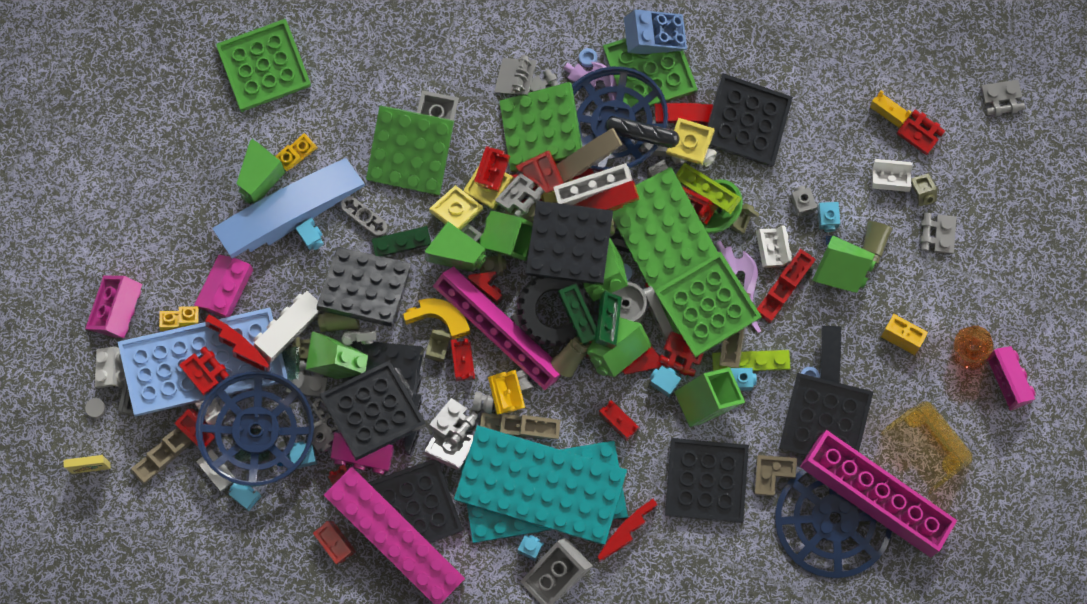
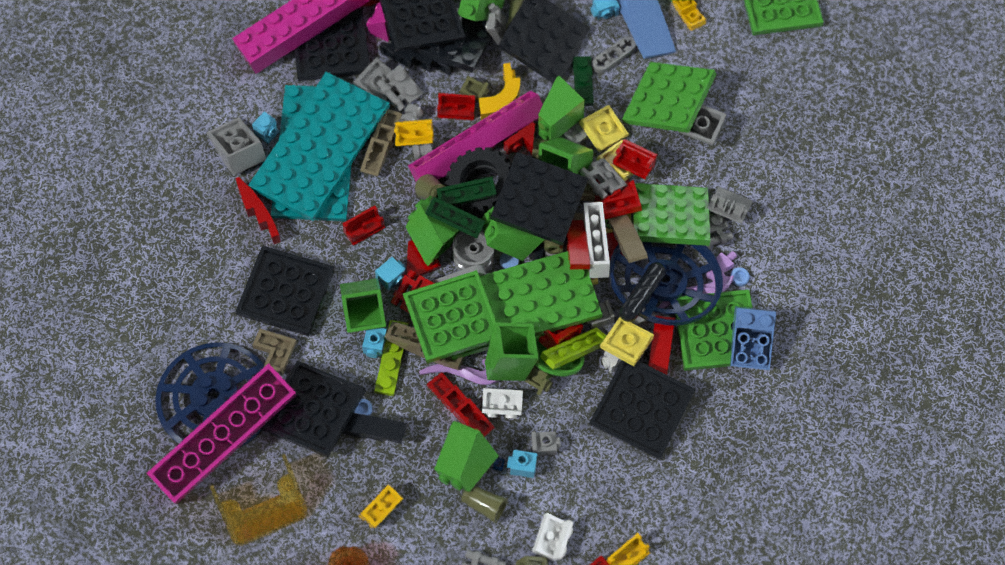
camera: 100 degrees right, 10 degrees down
(733, 239) = (511, 352): none -> bright green slope

